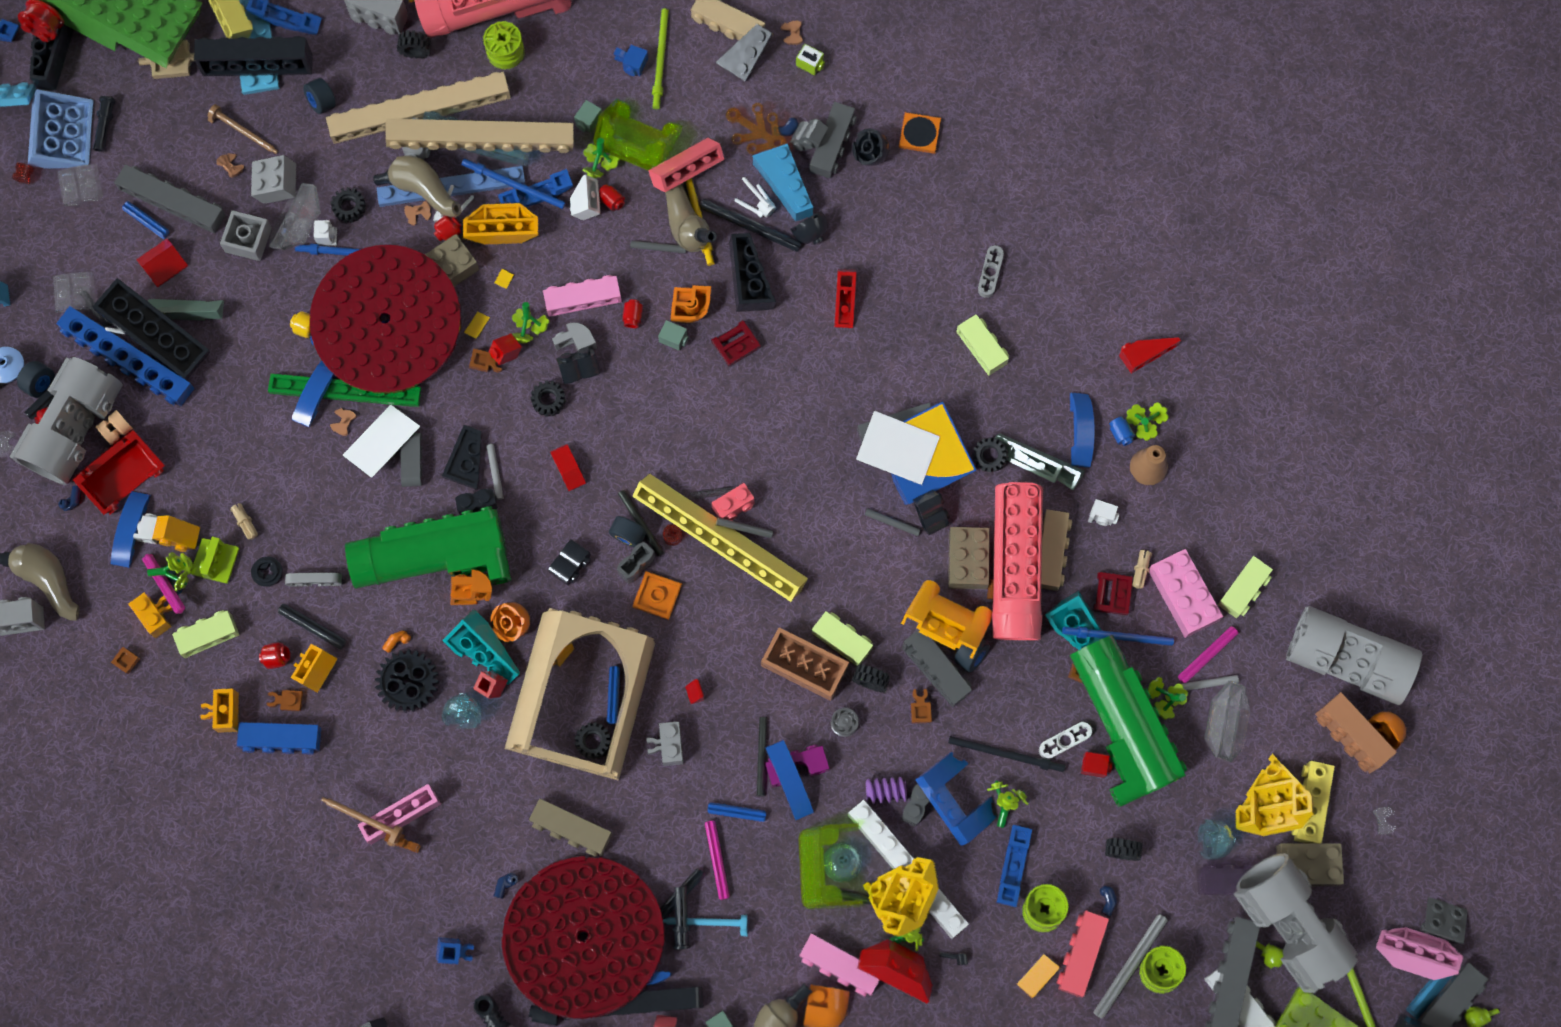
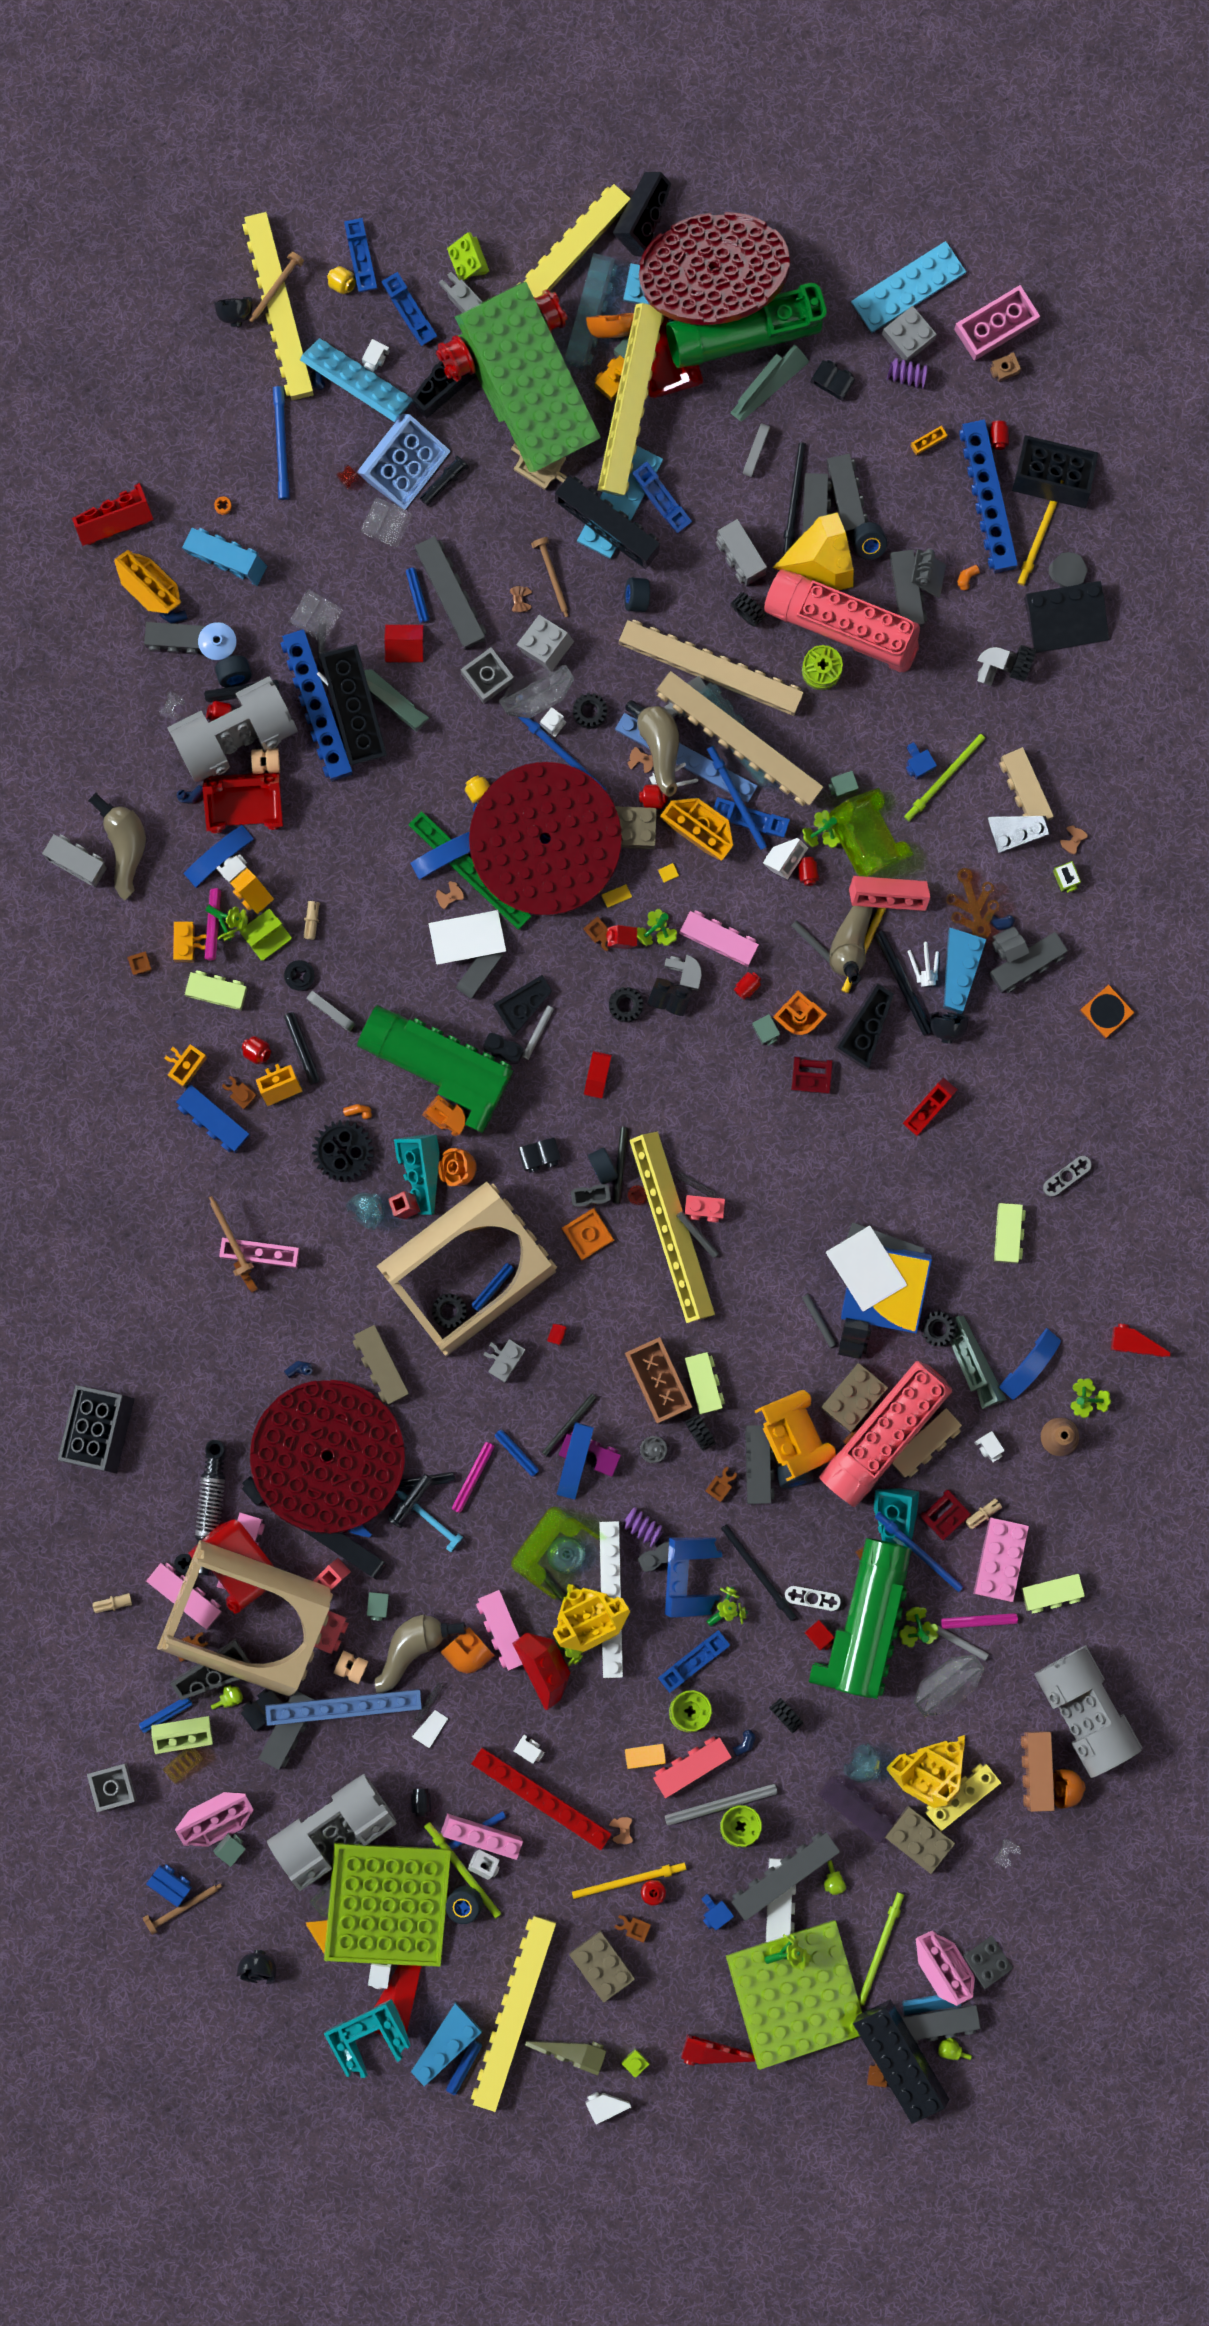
camera: 35 degrees right, 10 degrees up
(450, 950) = (220, 1388): blue brick -> none
(870, 147) = (1053, 995): black cylinder -> none
(961, 958) = (597, 1698): black hand -> none
(1121, 431) = (1061, 1392): blue brick -> none
(1315, 947) = (867, 1904): light grey cylinder -> none

